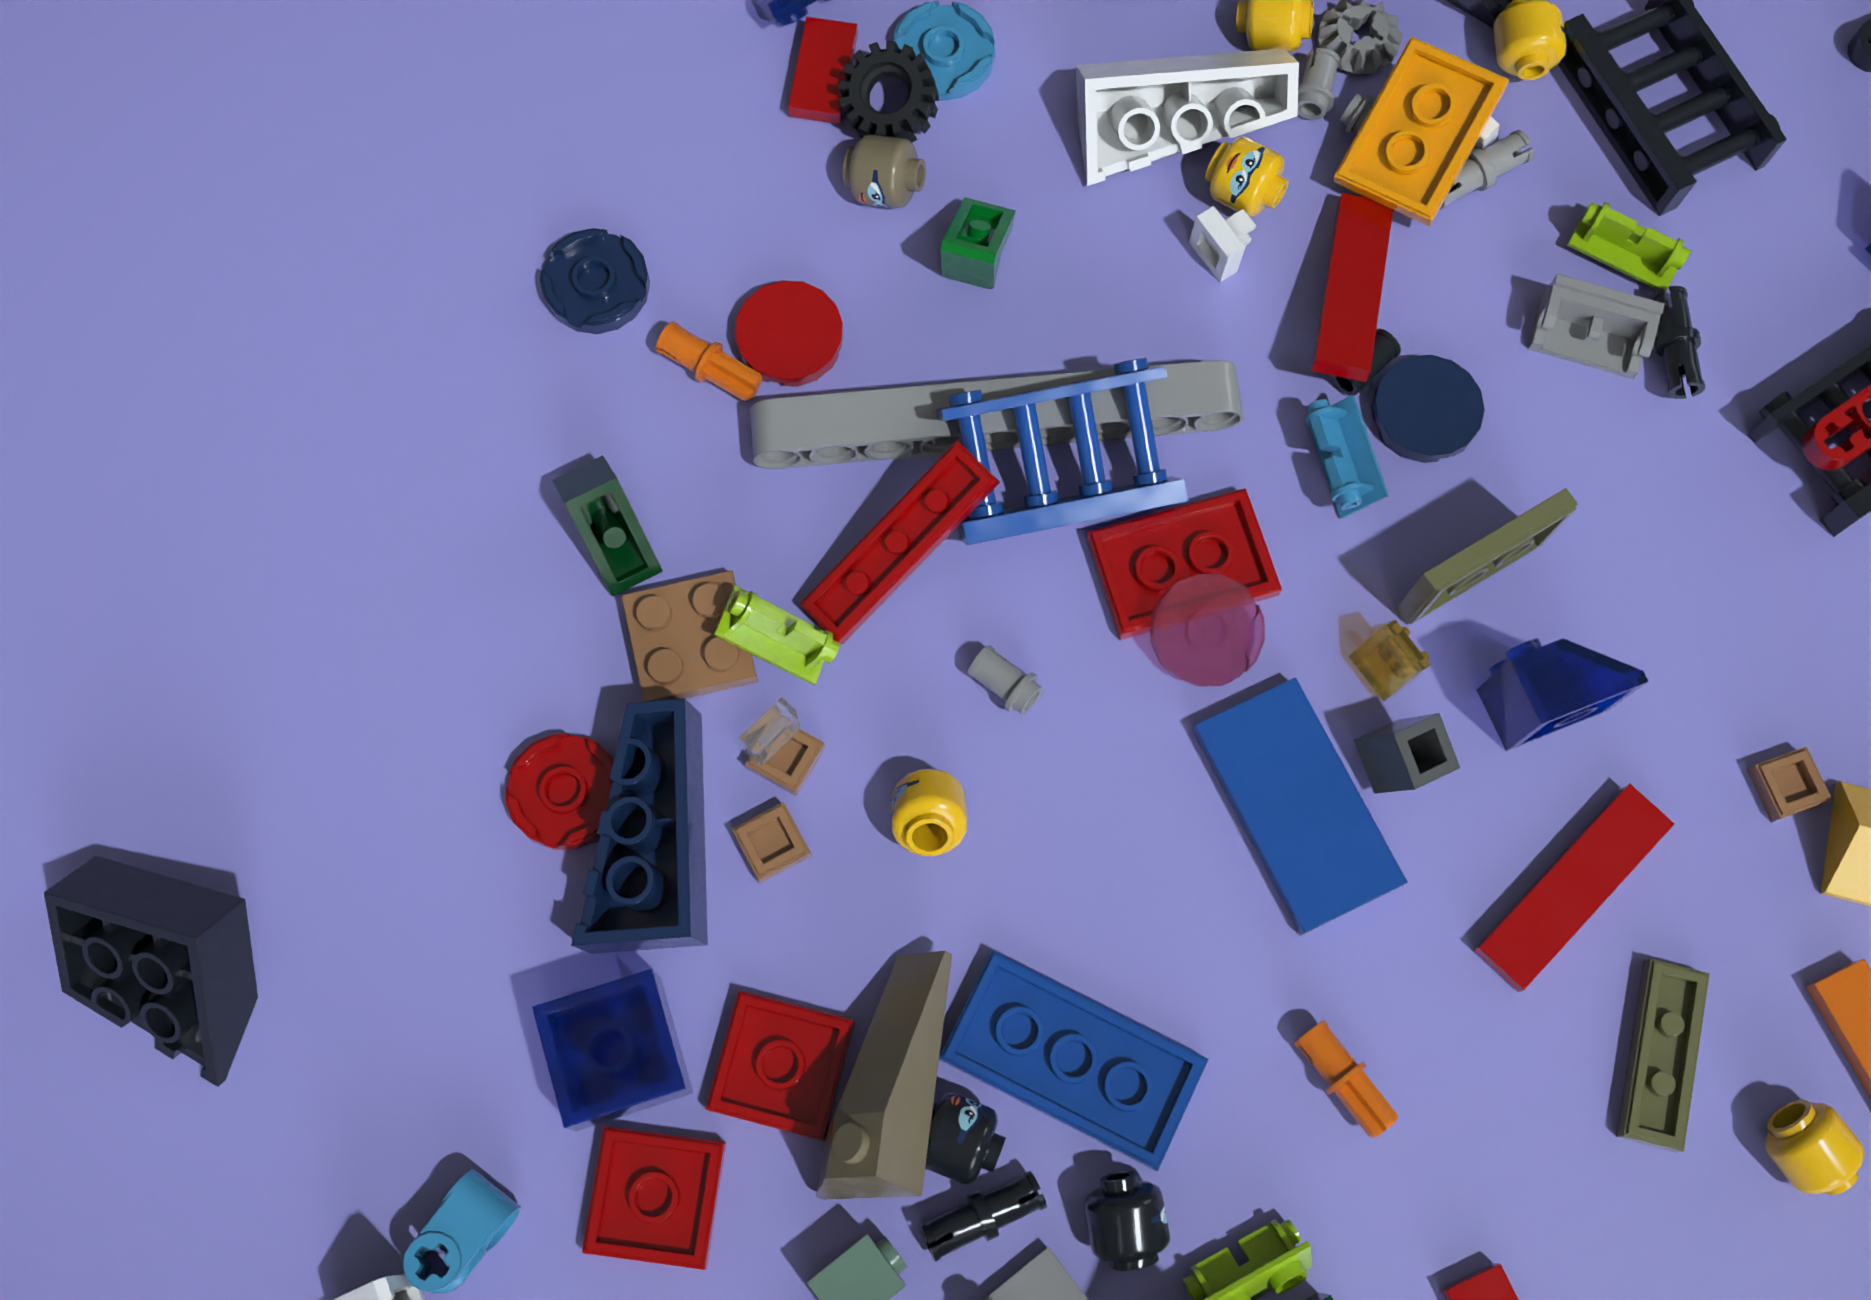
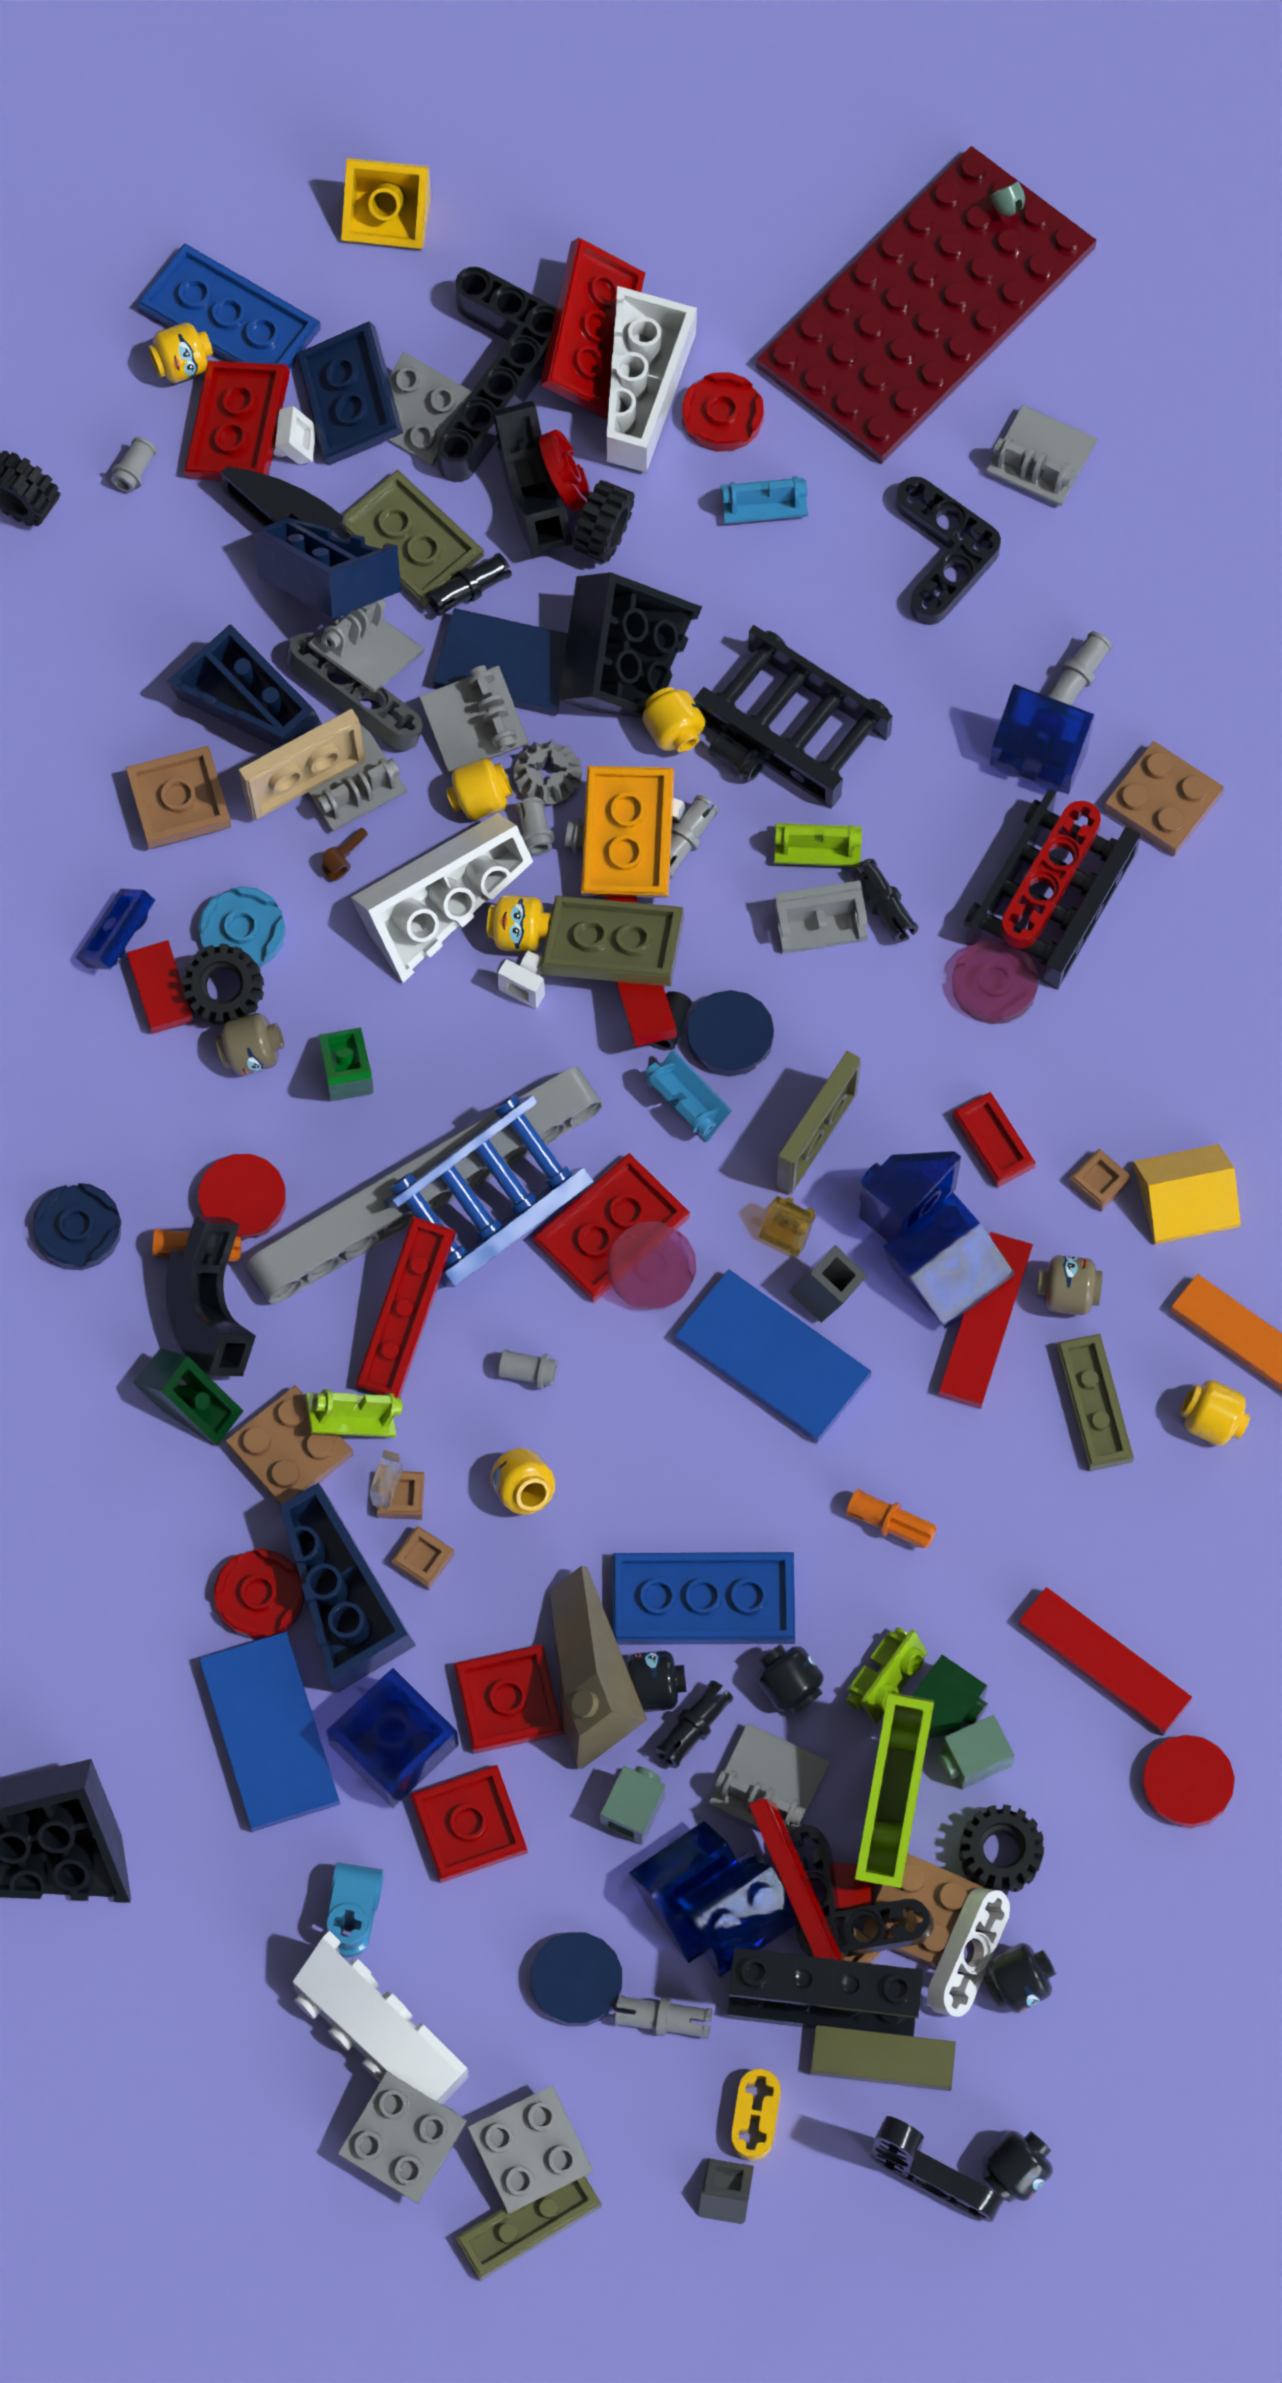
camera: 25 degrees left, 5 degrees down
(485, 963) = (269, 1731): none -> blue tile
(671, 421) = (198, 1301): none -> black arch
(1080, 22) = (334, 858): none -> reddish brown hand
(1344, 242) = (612, 940): none -> olive tile
(1566, 795) = (948, 1260): none -> clear blue slope
(1585, 117) = (736, 756): none -> black pin
(1681, 675) = (993, 1139): none -> red tile
(1702, 898) = (1070, 1285): none -> dark tan head
(1764, 493) = (994, 982): none -> clear pink tile

